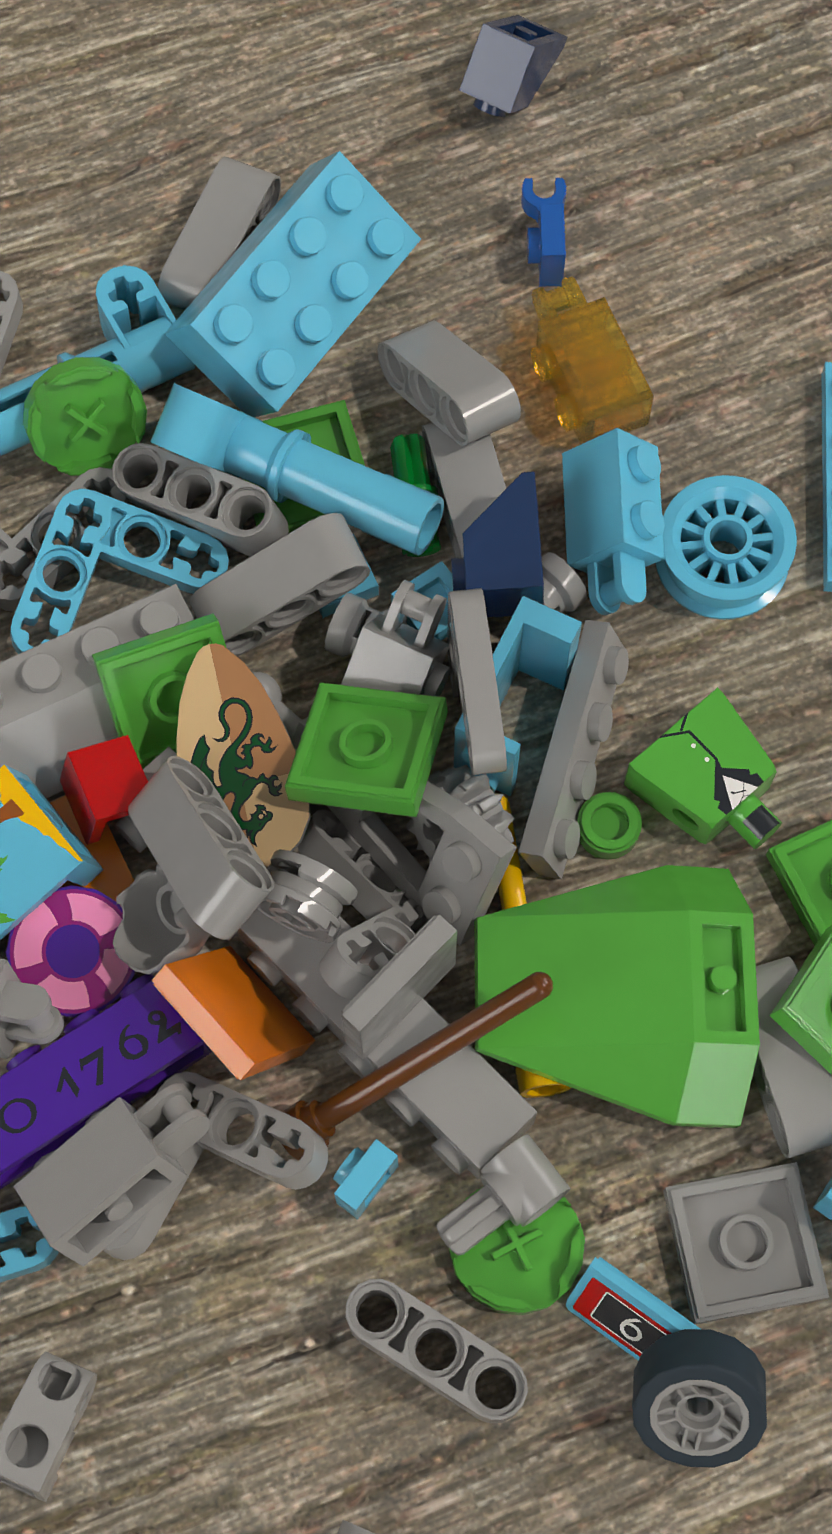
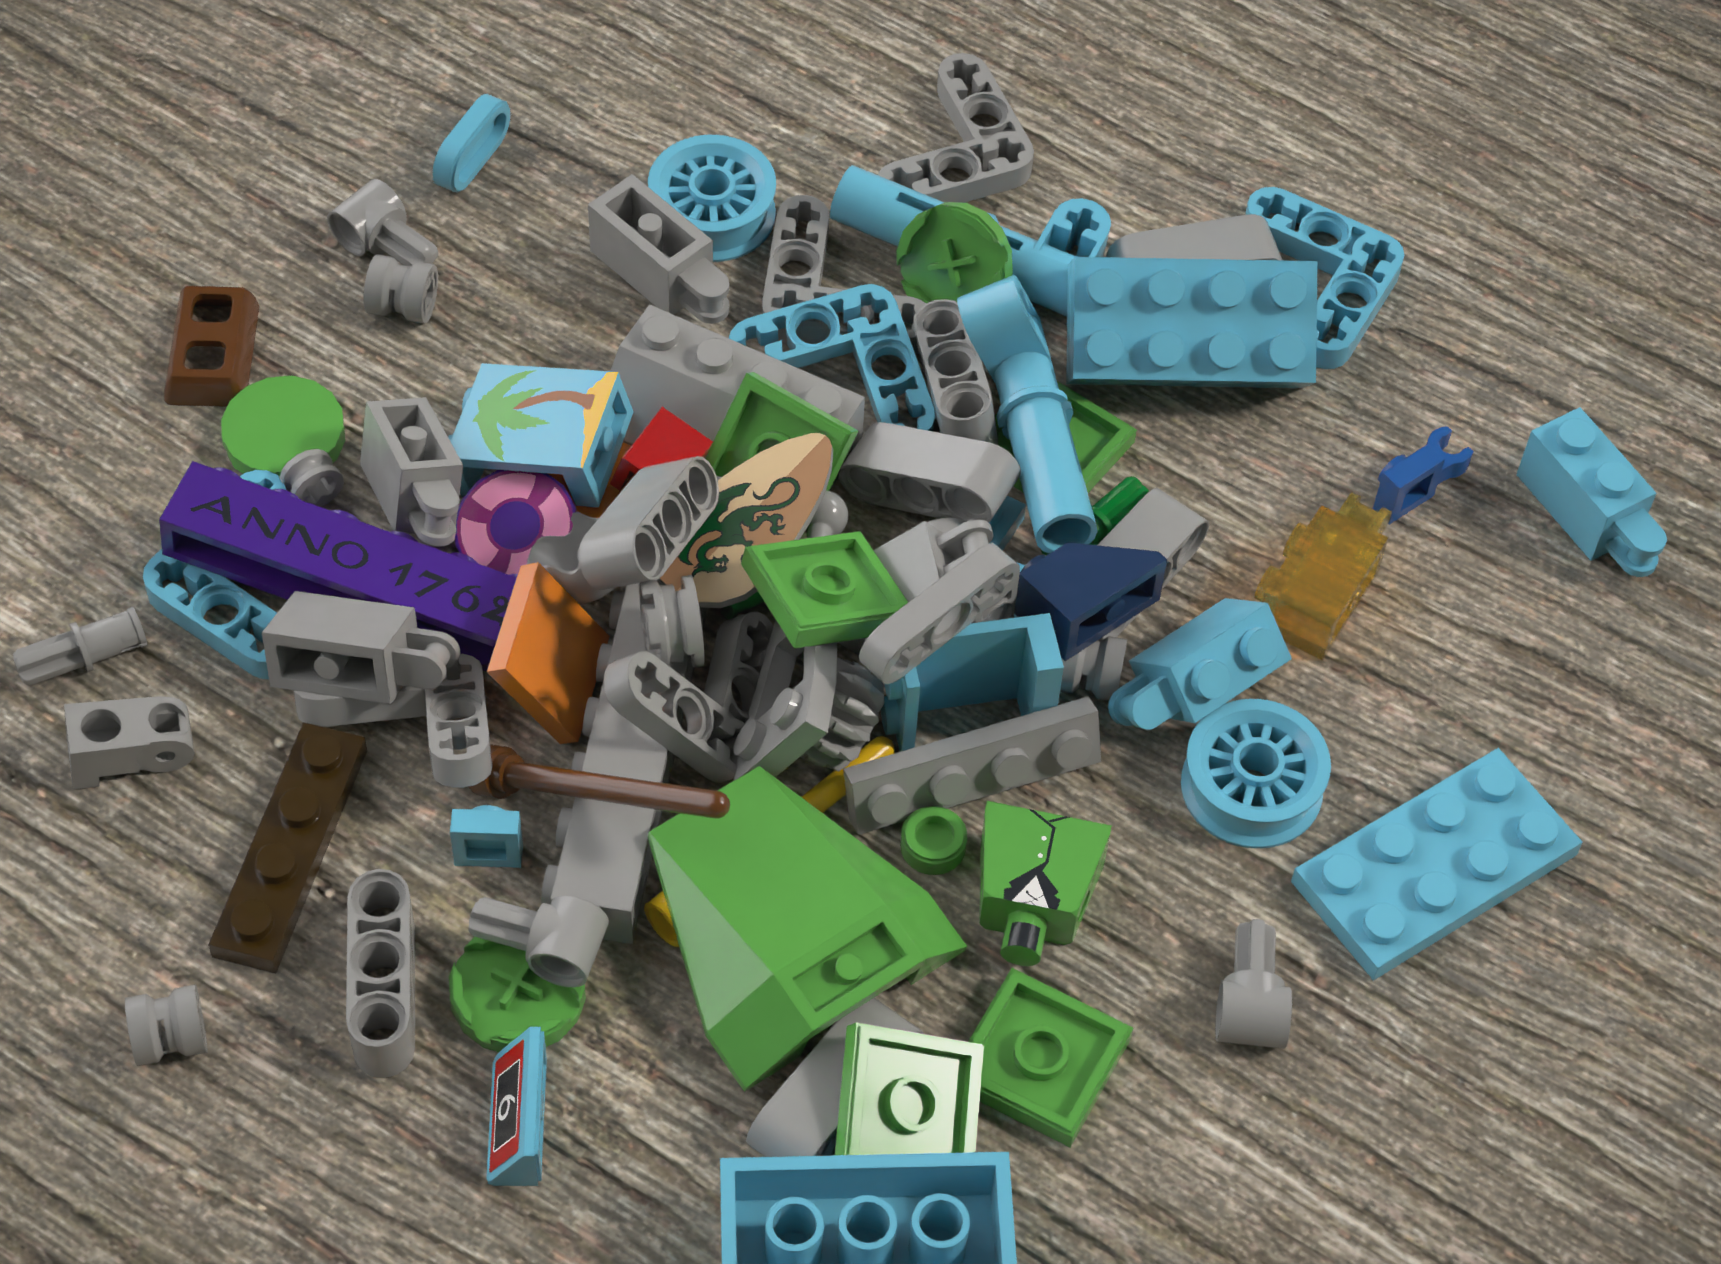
camera: 50 degrees right, 15 degrees down
(246, 1349) = (288, 848): none -> dark brown plate
(300, 129) = (1345, 261): none -> medium azure beam
(399, 986) = (643, 724): light grey tile -> none
(449, 382) = (1207, 476): light grey beam -> none
(510, 64) = (1545, 357): slope -> none
(662, 125) = (1593, 492): none -> medium azure brick
(699, 1398) = (479, 1180): black wheel -> none
(745, 1243) = (646, 1160): light grey tile -> none

